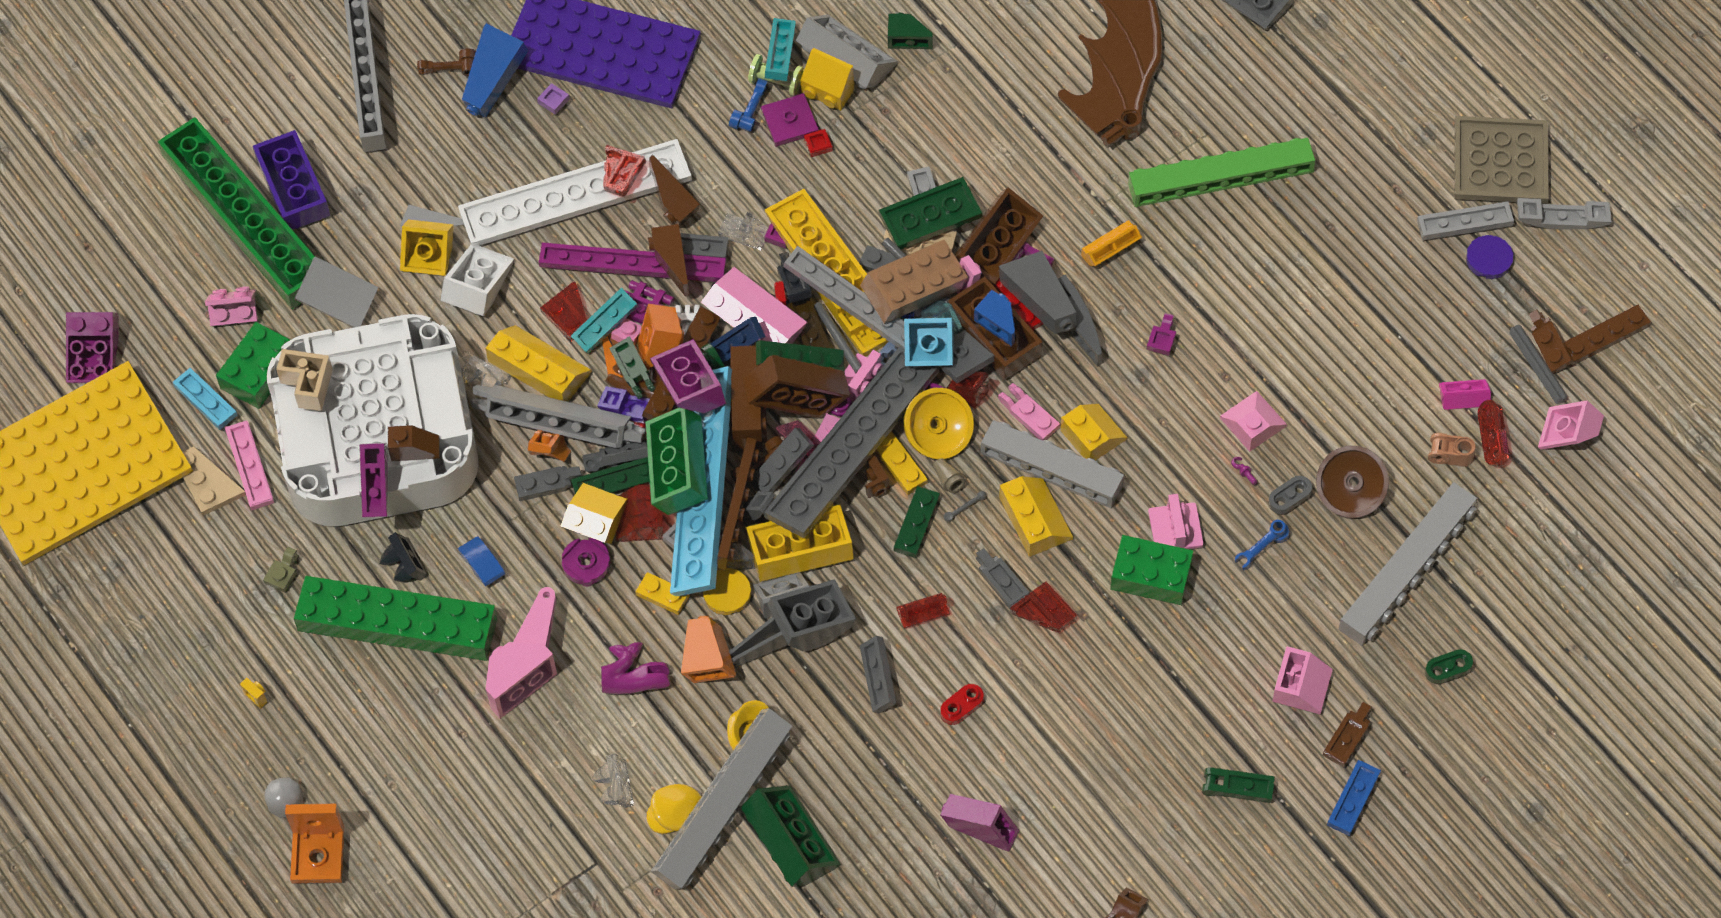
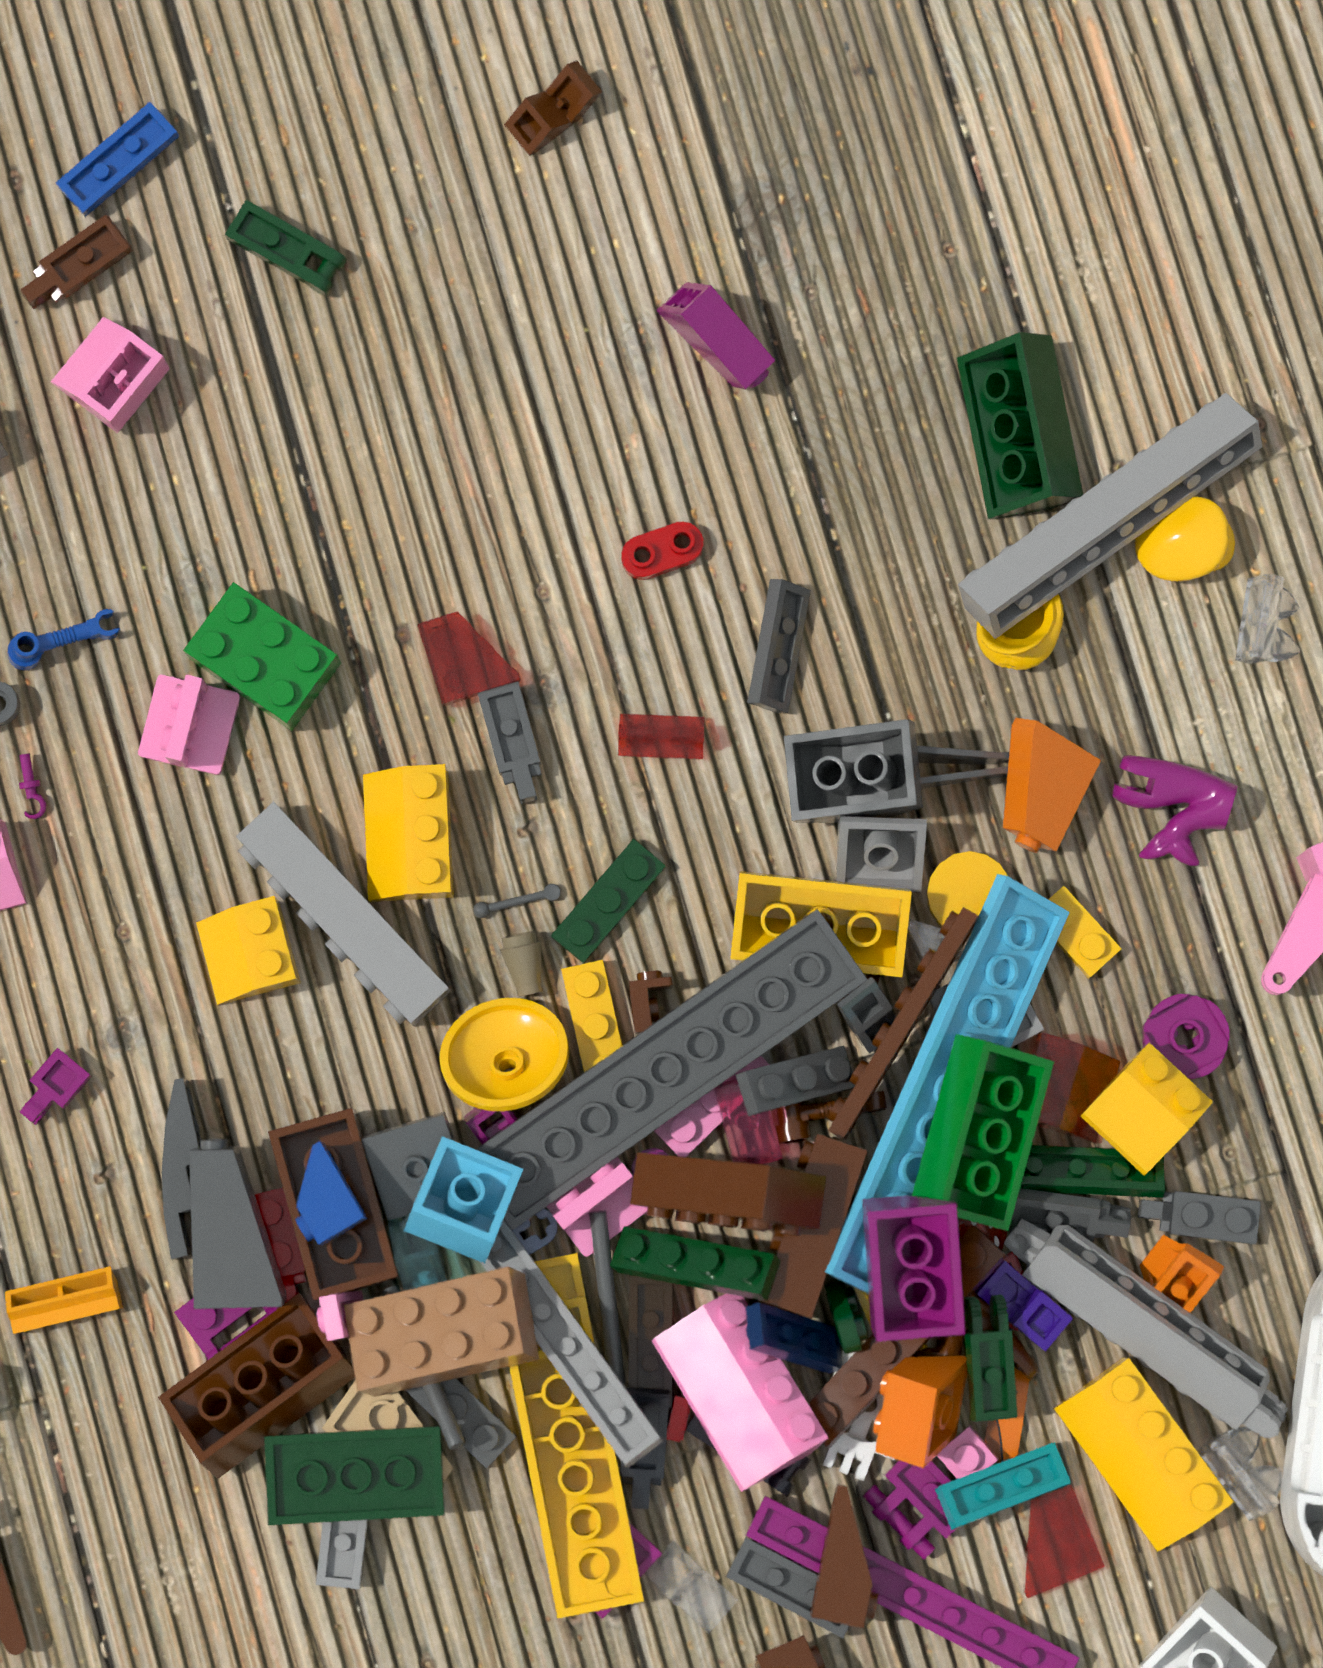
camera: 160 degrees left, 20 degrees up
(972, 388) = (418, 1102): clear red slope -> none
(1029, 413) = (338, 1027): bright pink hinge -> none

